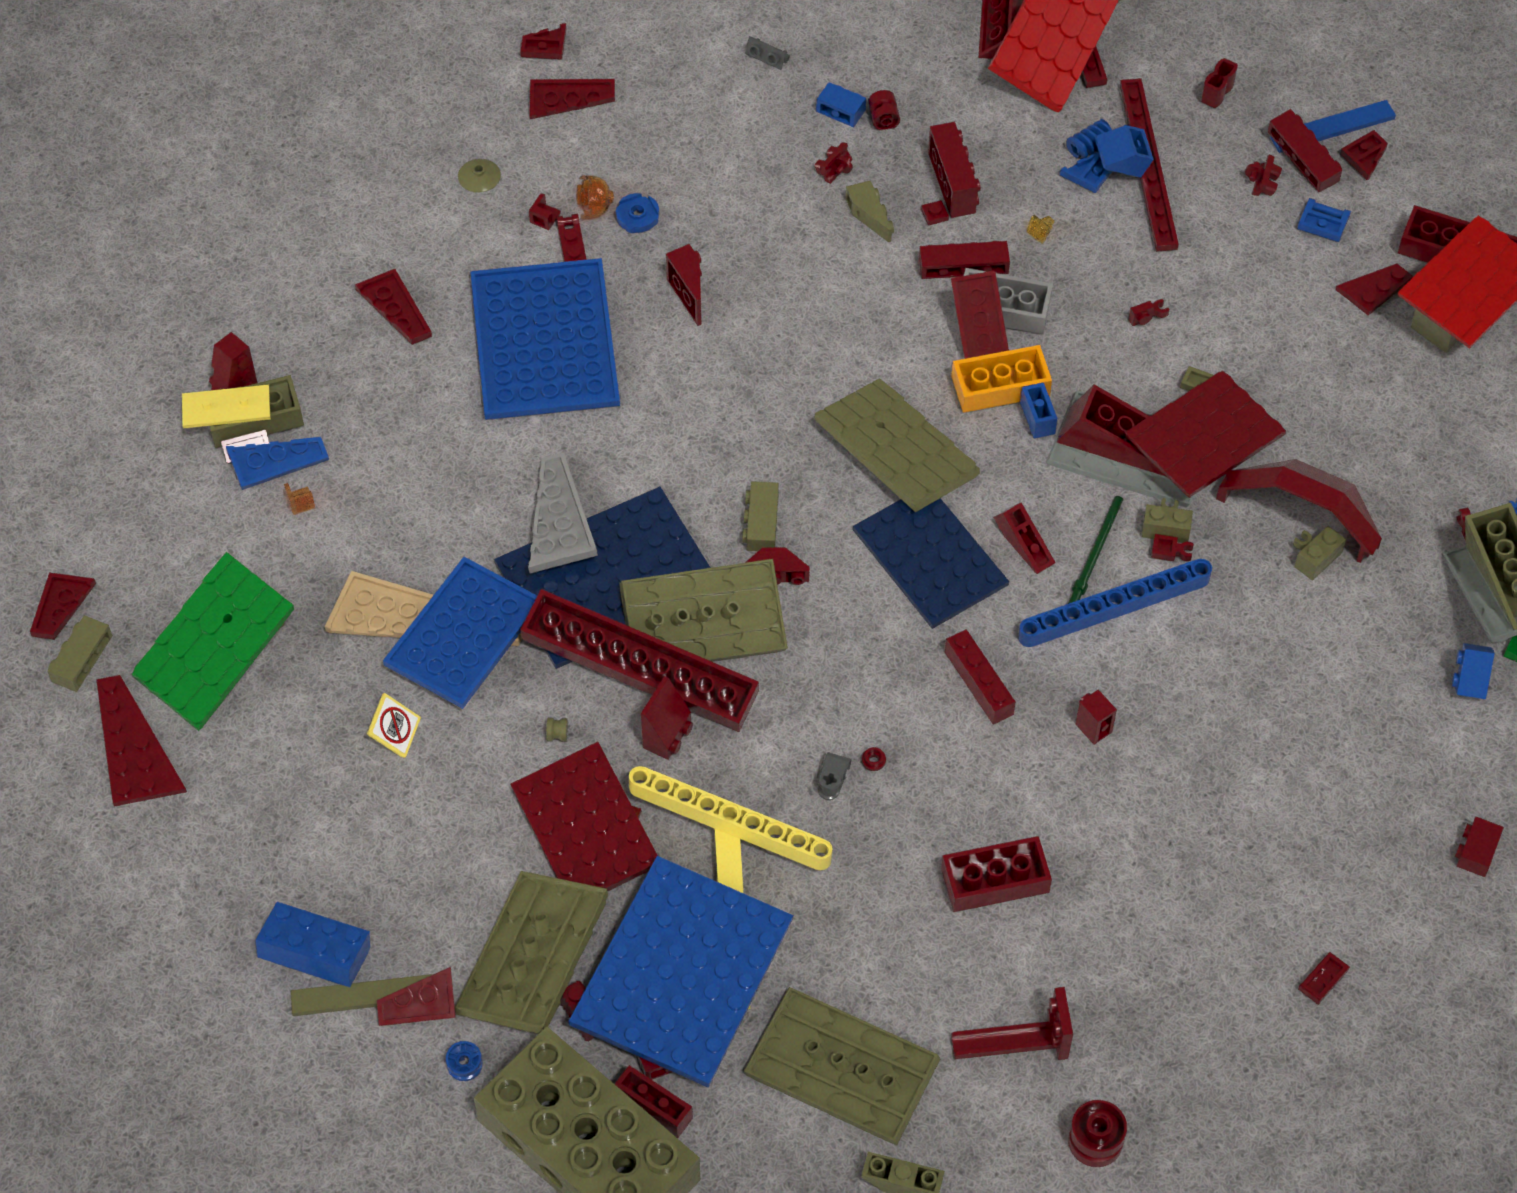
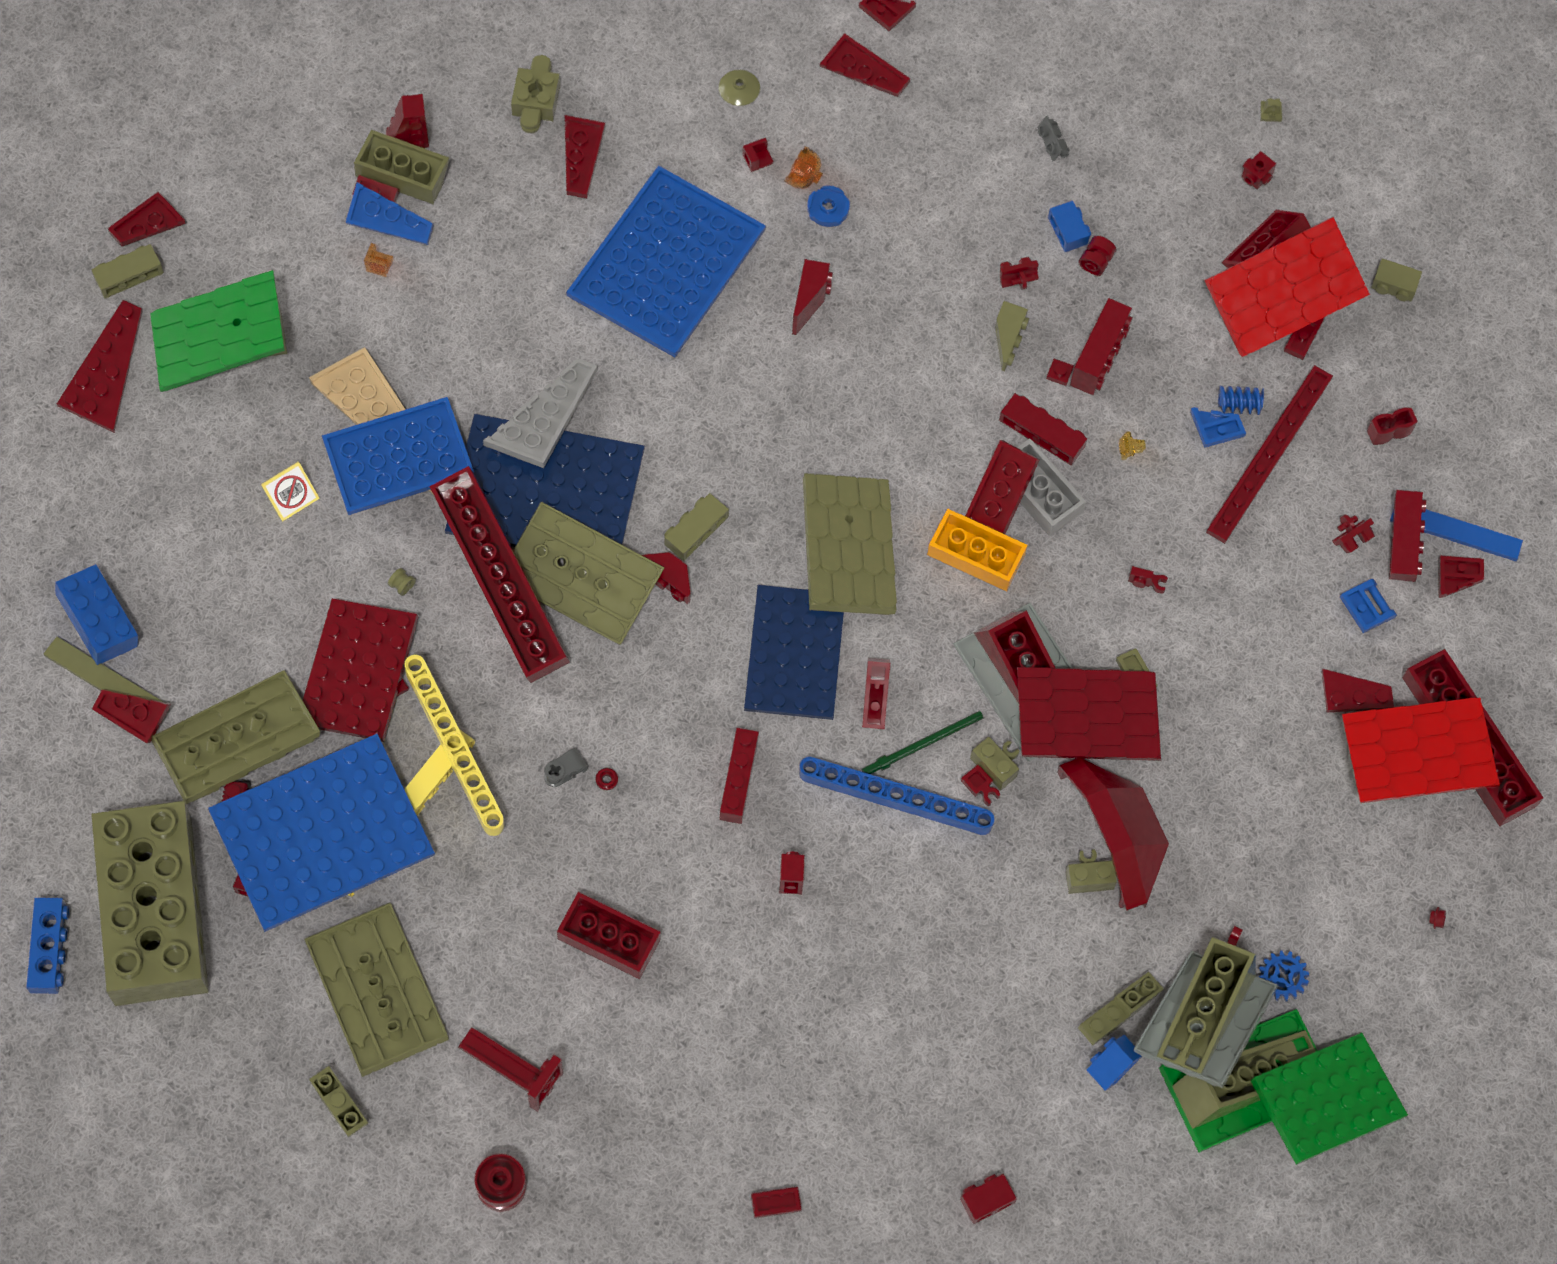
camera: 35 degrees right, 10 degrees up
(226, 406) = (380, 150): light yellow piece -> none
(315, 284) = (535, 94): none -> olive brick
(457, 1054) = (128, 771): blue wheel -> none
(571, 238) = (759, 192): dark red plate -> none
(656, 1100) = (221, 911): dark red brick -> none
(665, 720) = (476, 634): dark red slope -> none
(1038, 410) = (981, 597): blue brick -> none
(1125, 150) = (1252, 429): blue slope -> none
(1436, 631) = (1120, 1008): none -> olive slope

